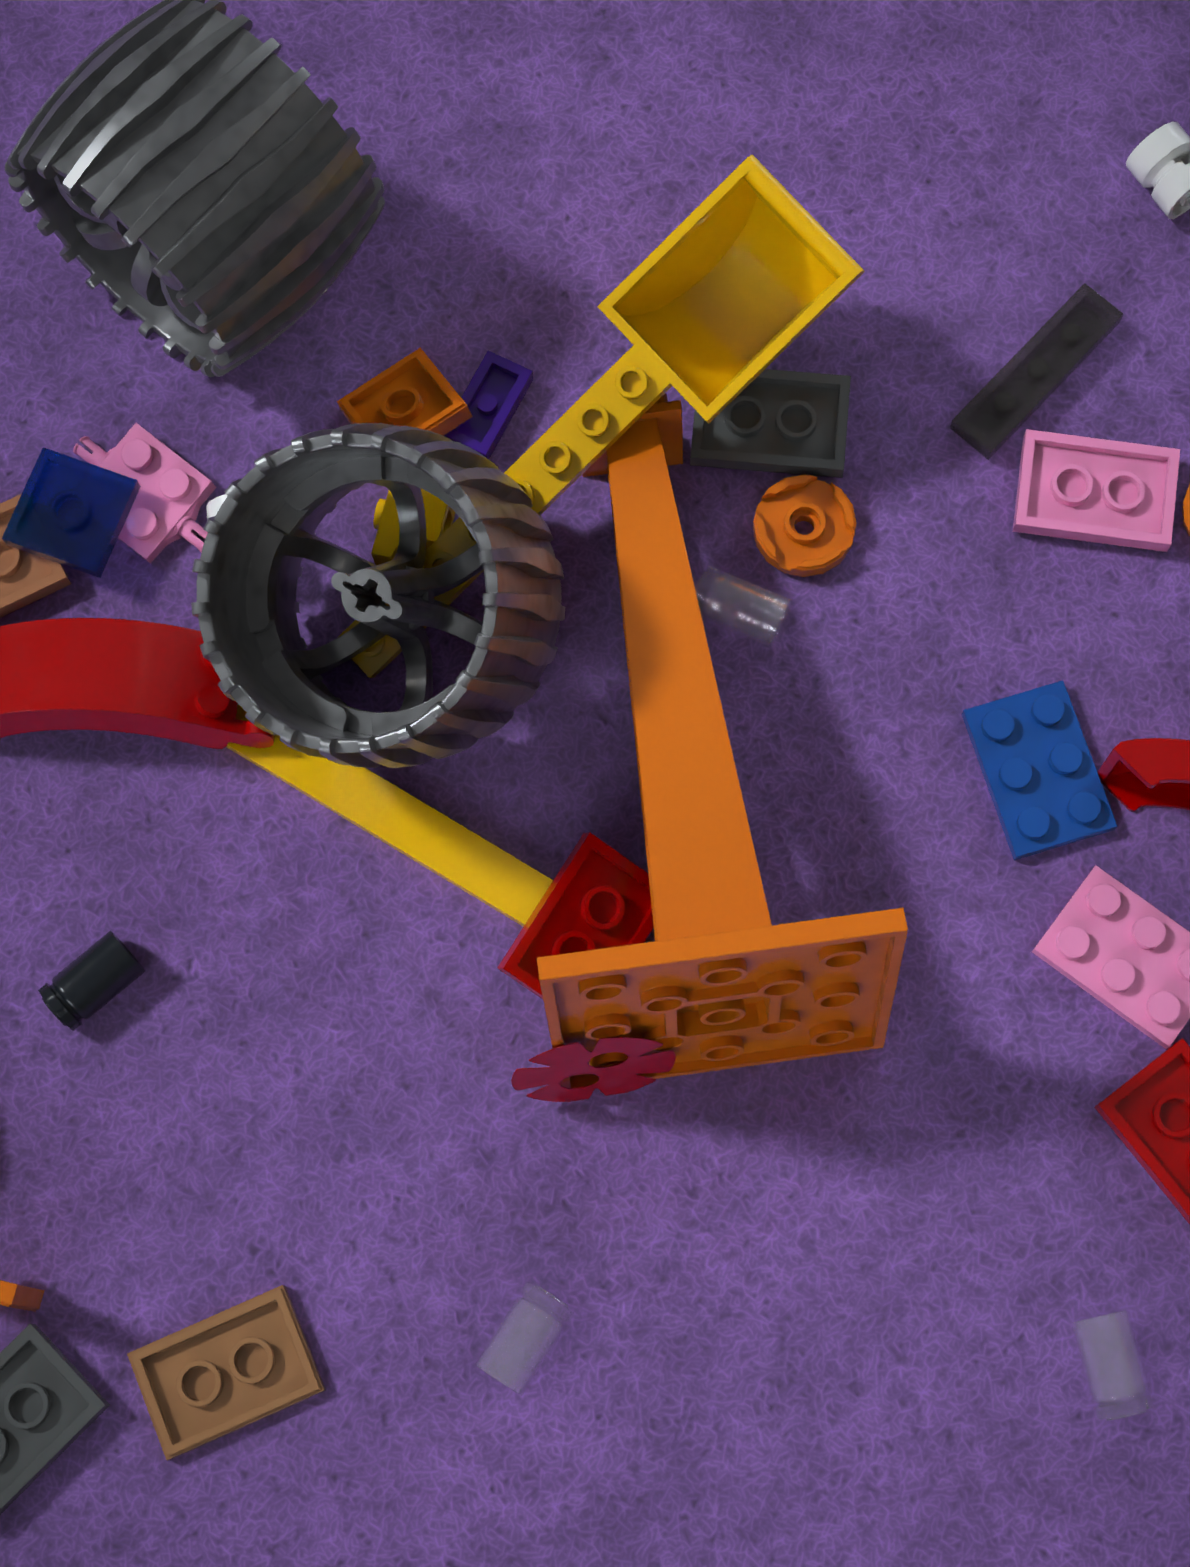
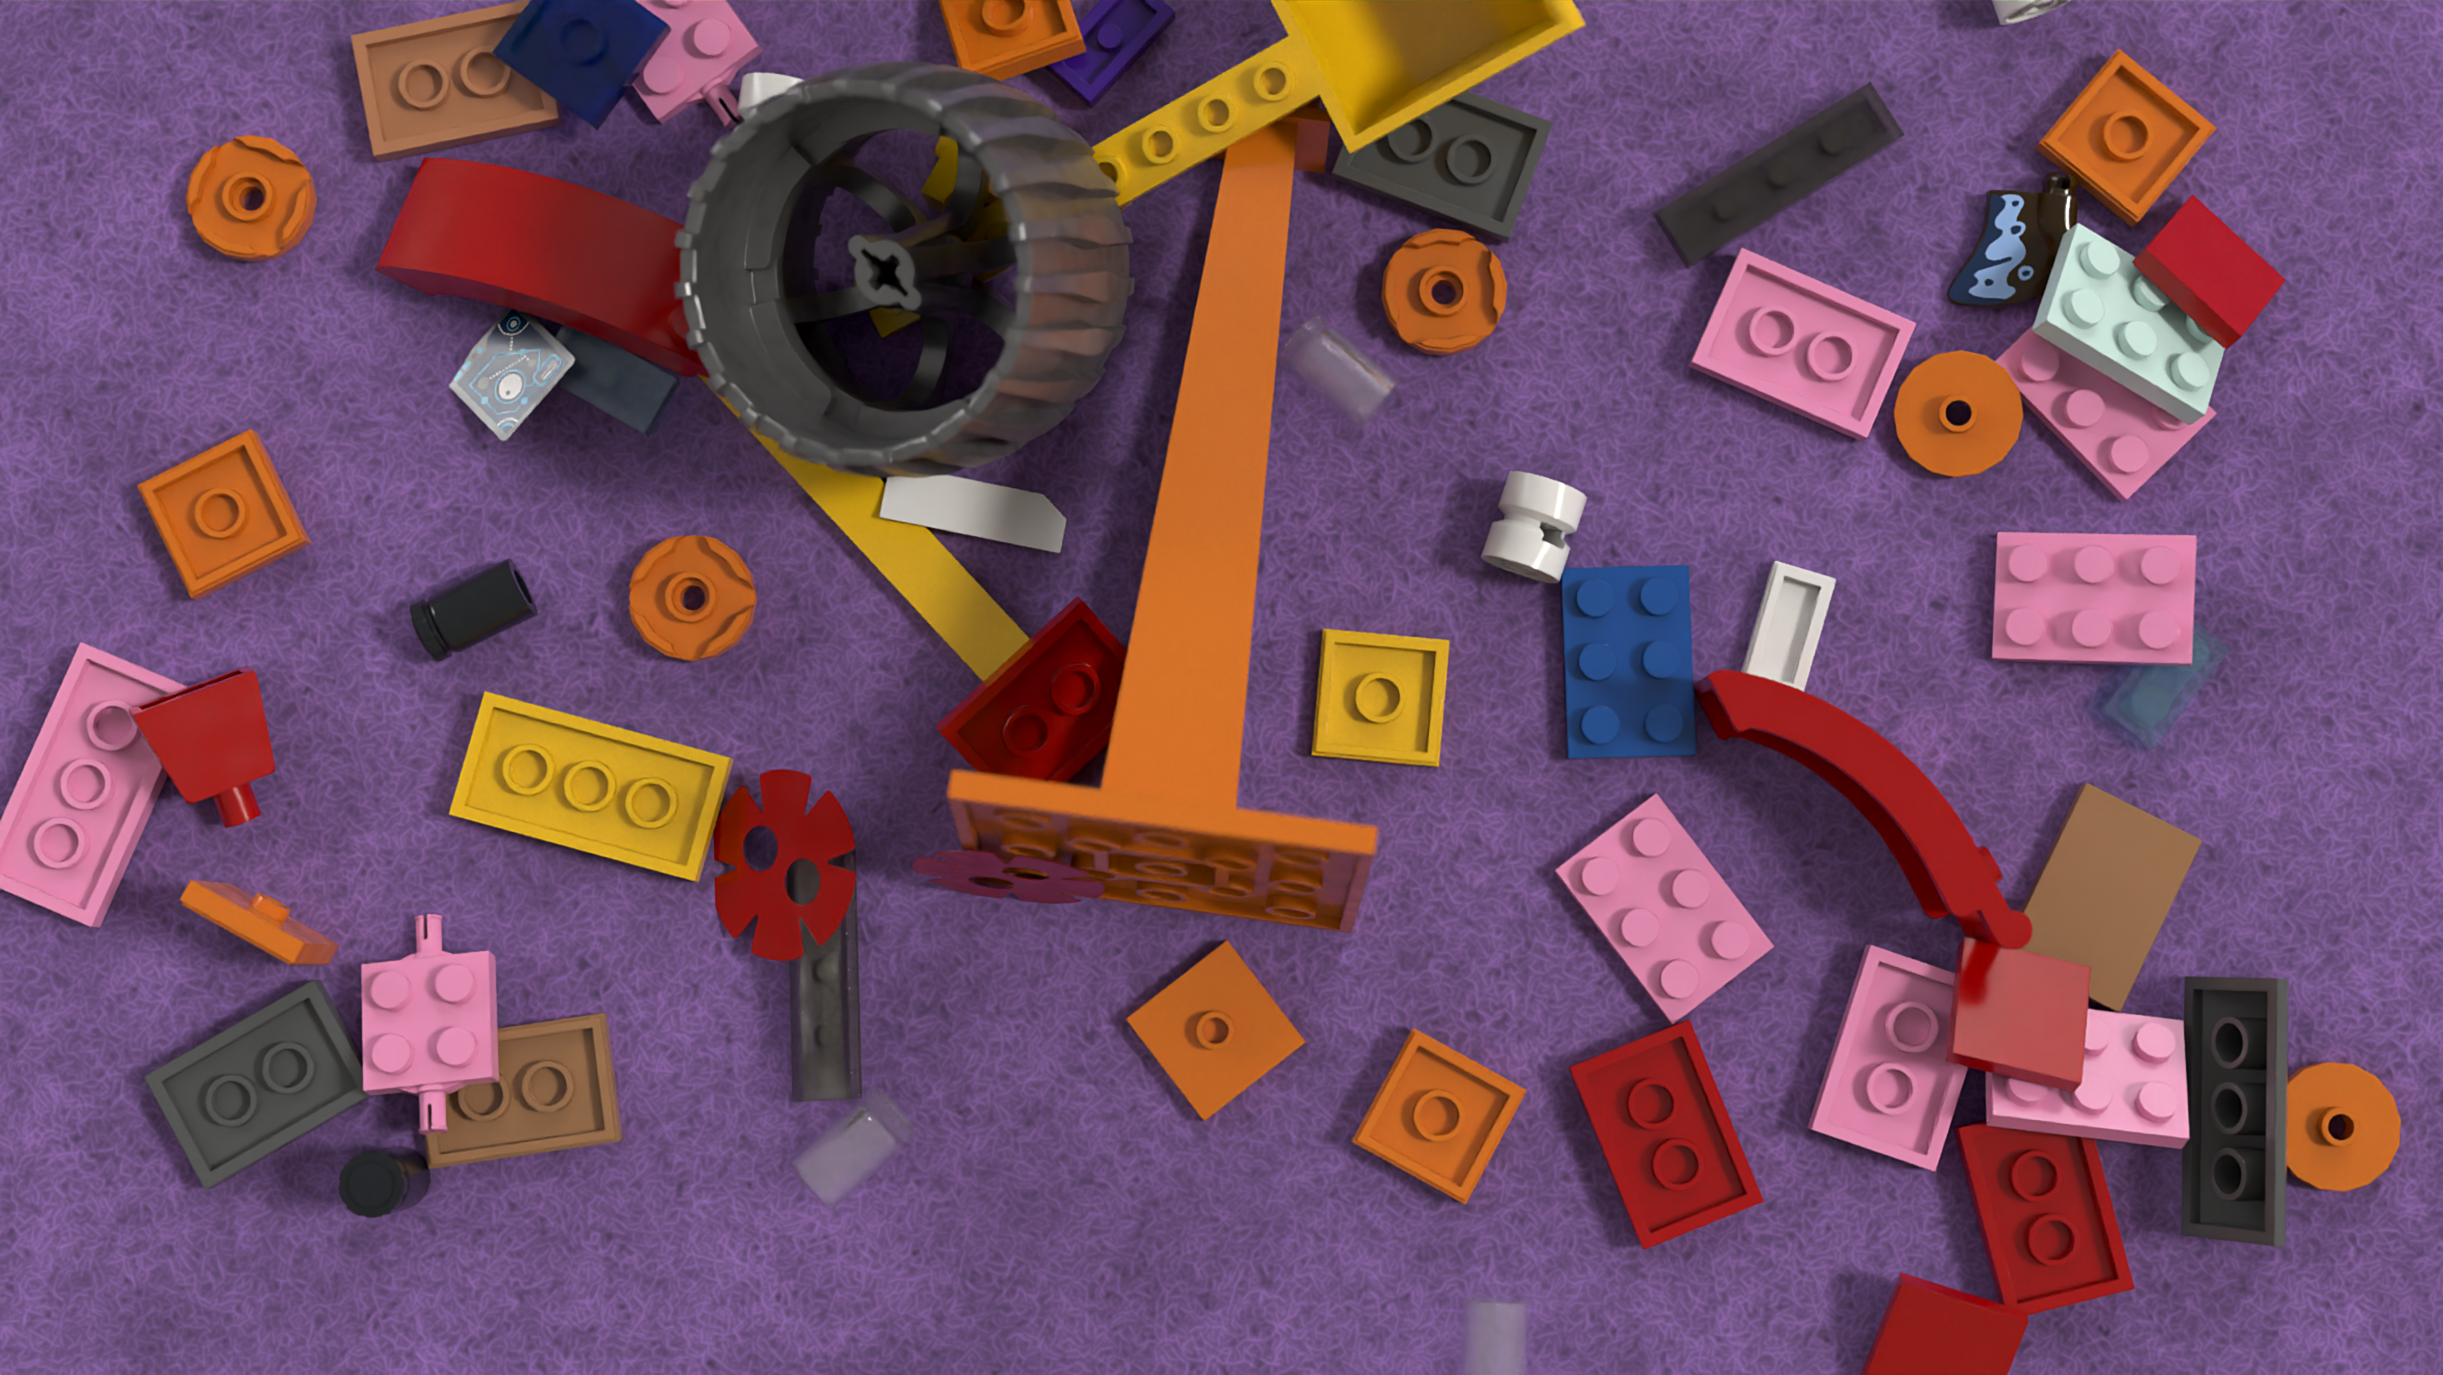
camera: 15 degrees right, 10 degrees up
(76, 782) = (511, 371): none -> sticker
(131, 1478) = (384, 1181): none -> black piece
(138, 1333) = (429, 1023): none -> bright pink plate
(156, 767) = (616, 380): none -> clear light blue plate
(225, 1098) = (591, 786): none -> yellow plate
(254, 899) = (668, 574): none -> orange plate
(423, 1083) = (814, 836): none -> red piece
(459, 1197) = (825, 998): none -> clear smoke plate
(478, 791) = (975, 510): none -> white sticker
(797, 1157) = (1215, 1030): none -> orange plate
(850, 852) = (1380, 698): none -> yellow tile
(932, 682) = (1534, 526): none -> white wheel
(1002, 1175) = (1439, 1115): none -> orange plate
(1156, 699) = (1788, 625): none -> white tile

